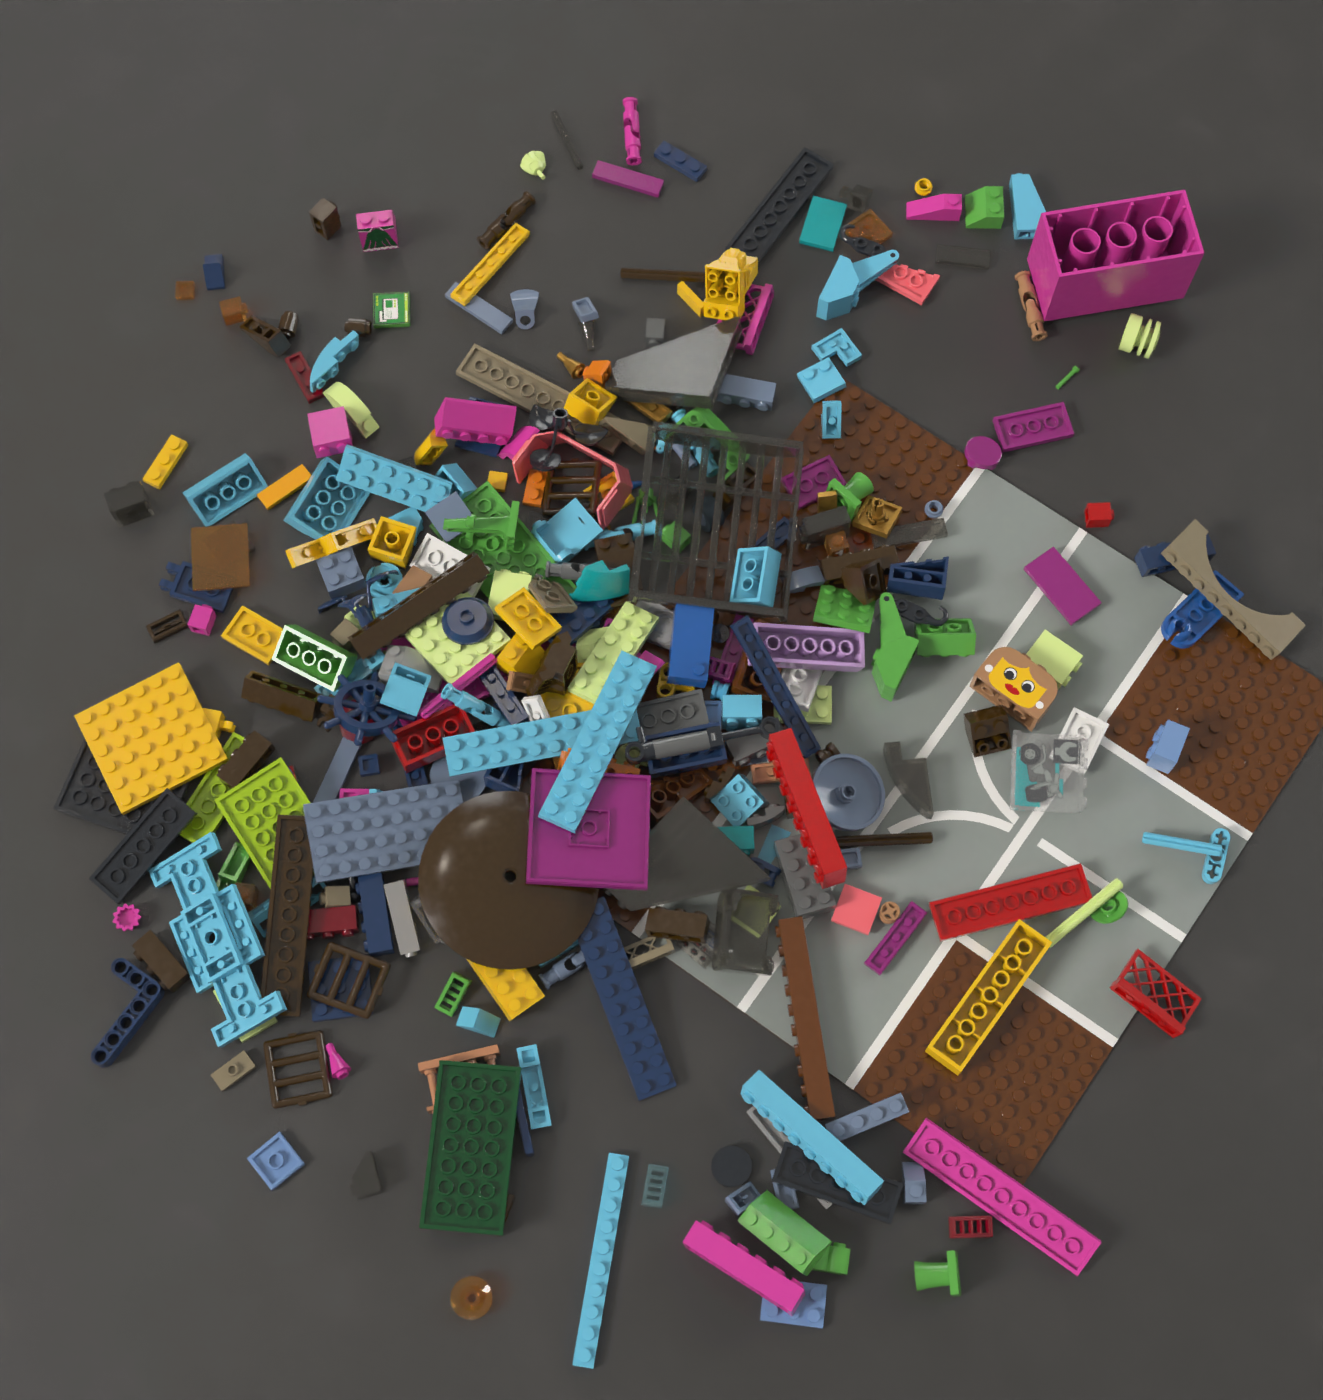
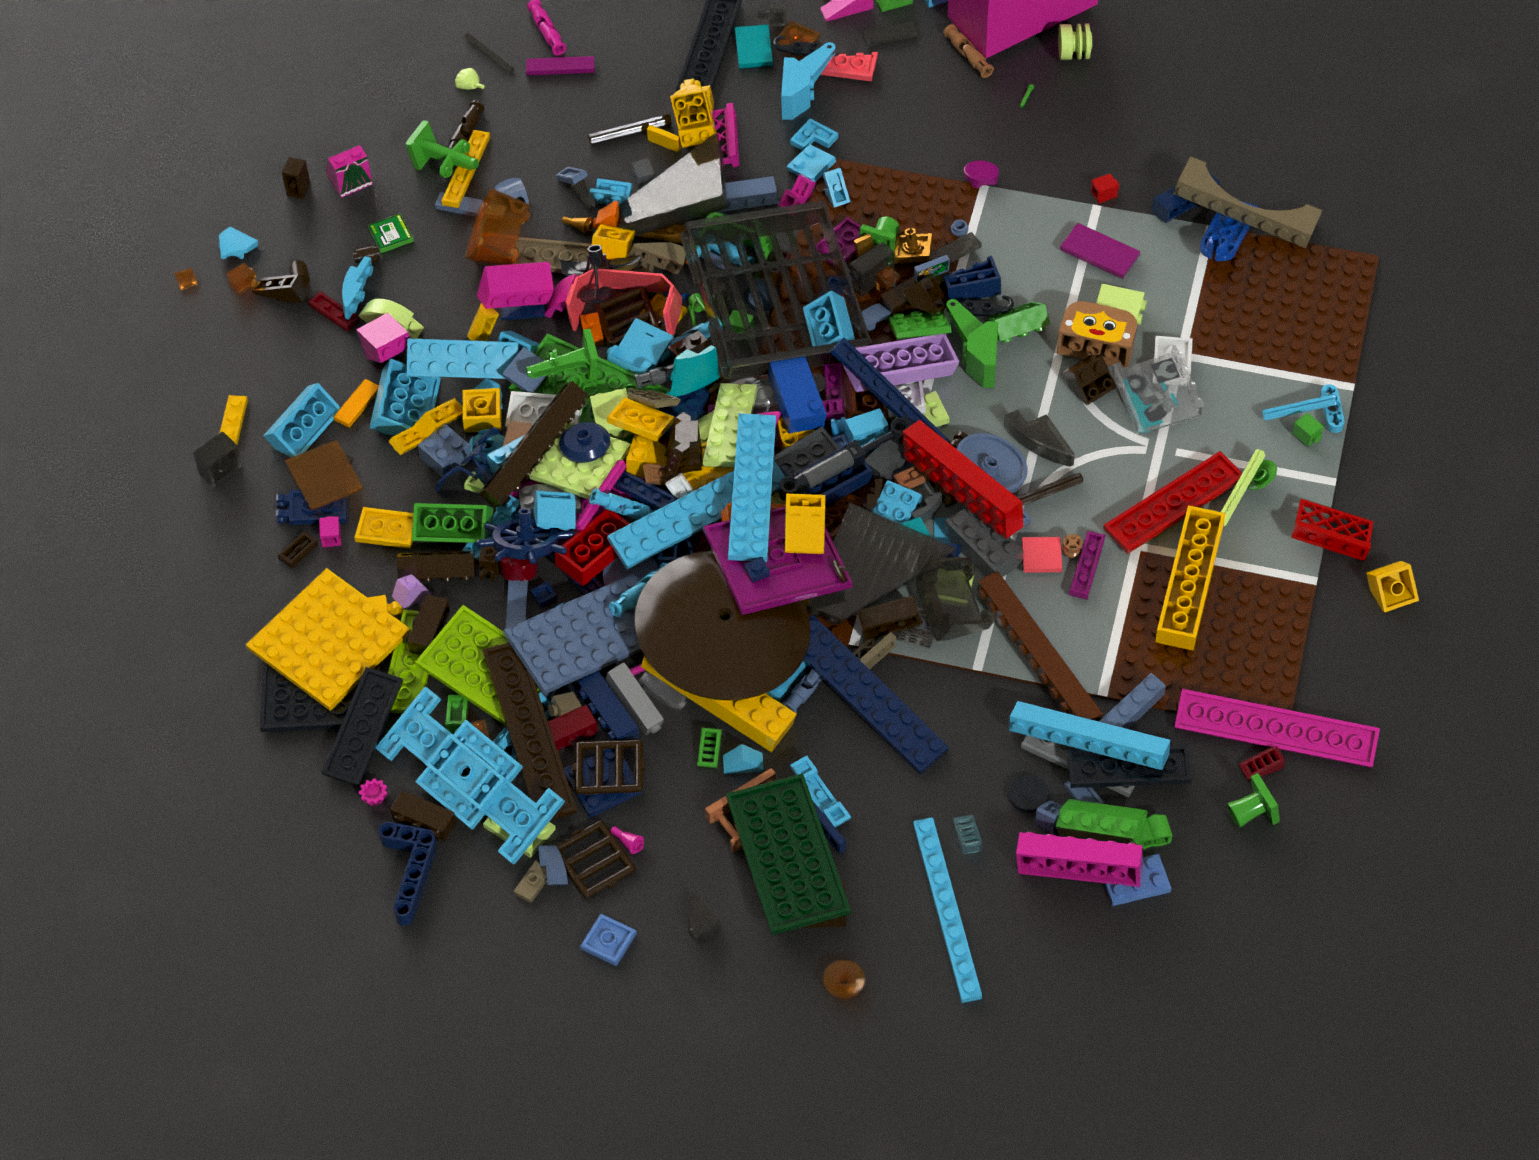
camera: 20 degrees left, 15 degrees down
(214, 272) = (208, 255): dark blue slope -> none
(244, 268) = (235, 243): none -> medium azure slope
(247, 716) = (409, 591): none -> lavender slope
(256, 1064) = (555, 868): none -> sand blue slope
(341, 634) = (471, 495): dark tan brick -> none
(441, 808) = (630, 597): none -> medium azure piece
(459, 226) = (423, 146): none -> bright green piece
(487, 348) = (497, 229): none -> clear orange windscreen
(498, 480) = (555, 331): yellow tile -> none
(560, 840) = (757, 570): none -> dark blue plate
(616, 342) = (611, 191): none -> medium azure bracket
(627, 807) = (804, 523): none -> yellow slope
(639, 871) = (839, 570): none -> dark brown helmet
(680, 161) = (601, 38): dark blue plate -> none
(791, 411) = (800, 192): none -> dark pink slope
(882, 551) = (933, 267): none -> tile
(913, 1183) = (1199, 749): sand blue slope -> none
(1033, 427) = (1015, 141): magenta plate -> none
(1167, 746) = (1250, 336): medium blue brick -> none
(1180, 873) = (1308, 430): none -> bright green brick
(1188, 1080) = (1393, 586): none -> yellow slope

